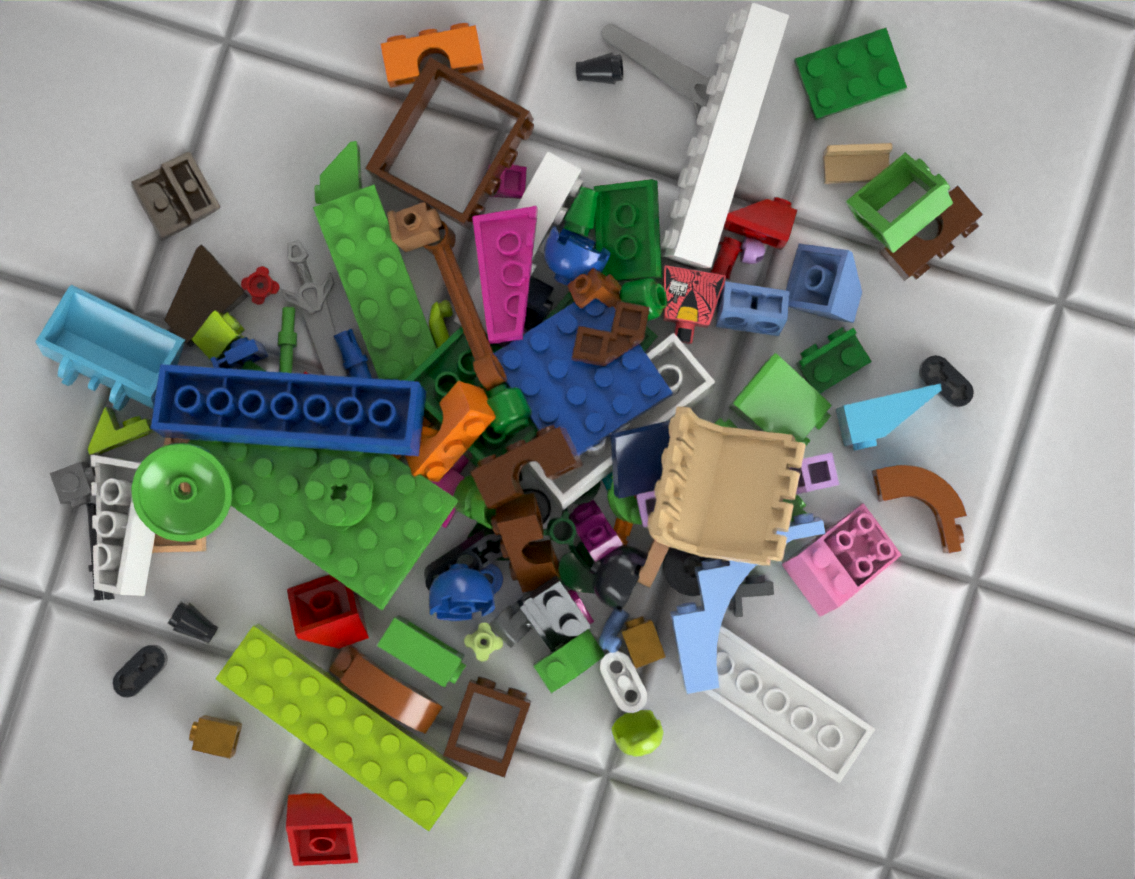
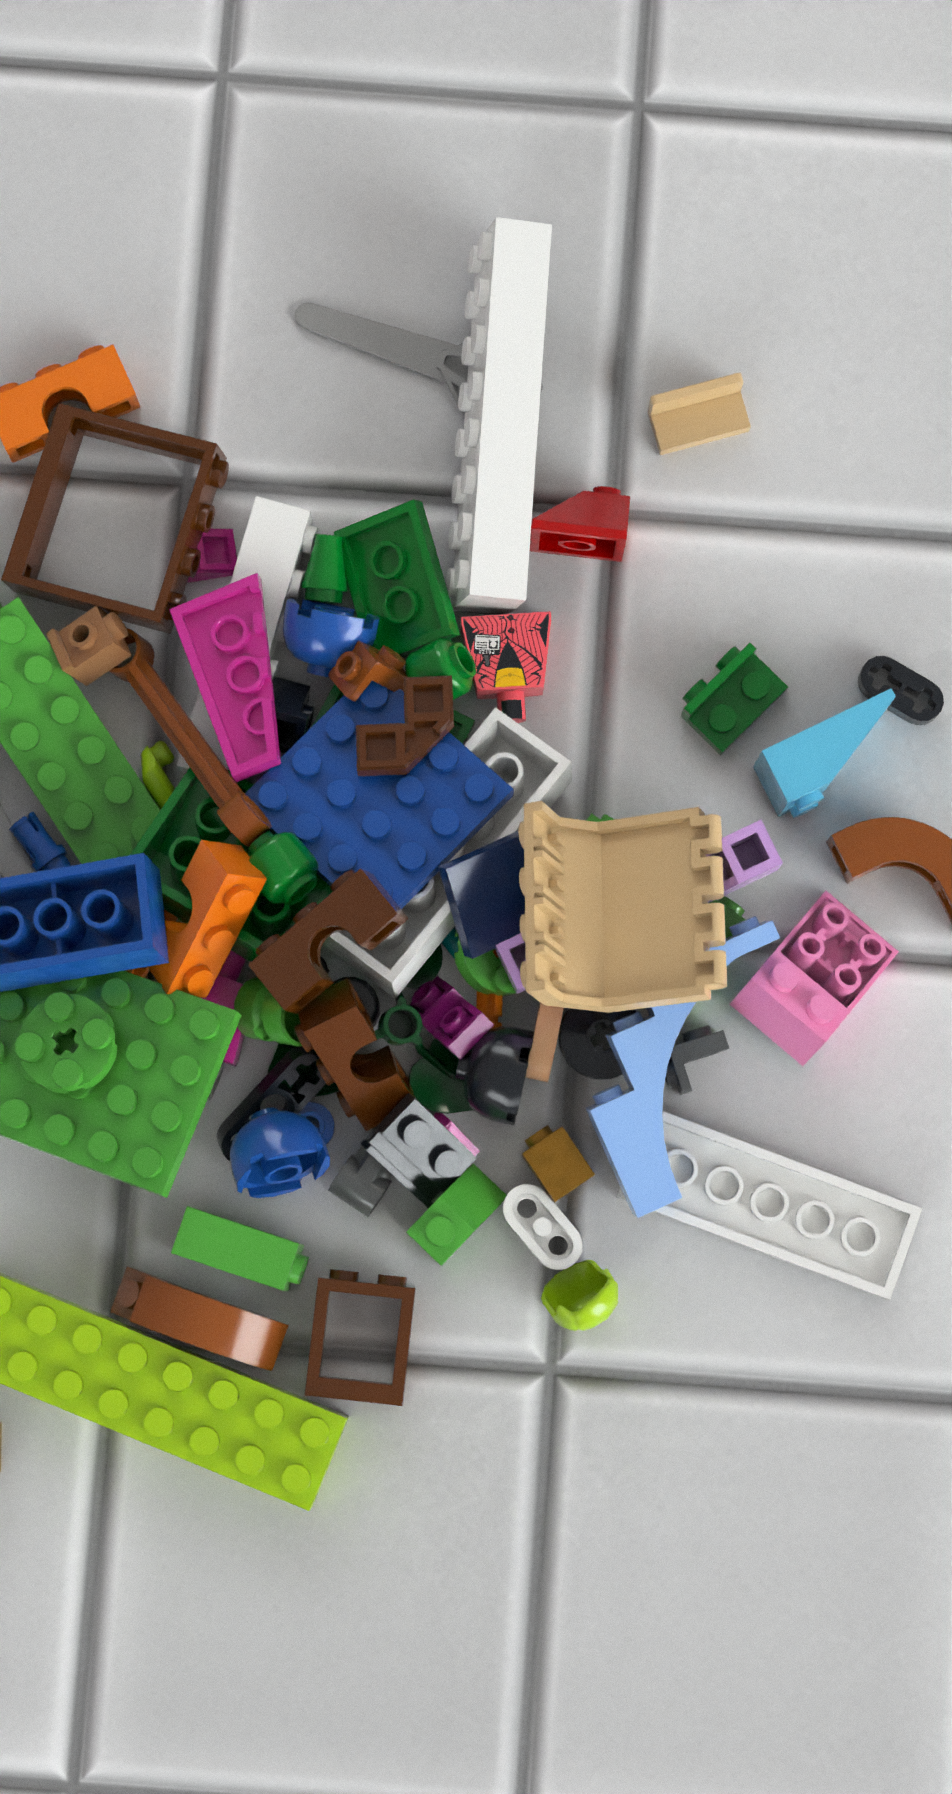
camera: 15 degrees left, 5 degrees down
(319, 831) = (150, 1552): red slope -> none
(327, 613) = (90, 1227): red slope -> none
(474, 641) = (312, 1218): yellowish green plate -> none
(601, 69) = (306, 367): black cone -> none
(608, 637) = (506, 1166): medium blue arm -> none
(726, 256) = (546, 586): red pin -> none
(752, 251) = (580, 571): lavender hinge -> none
(752, 308) = (600, 650): medium blue brick -> none
(781, 402) = (672, 768): bright green slope -> none
(824, 283) = (693, 592): medium blue slope -> none
(850, 74) = (659, 294): green plate -> none
(885, 187) = (751, 432): bright green window -> none
(913, 255) = (806, 522): reddish brown arch -> none

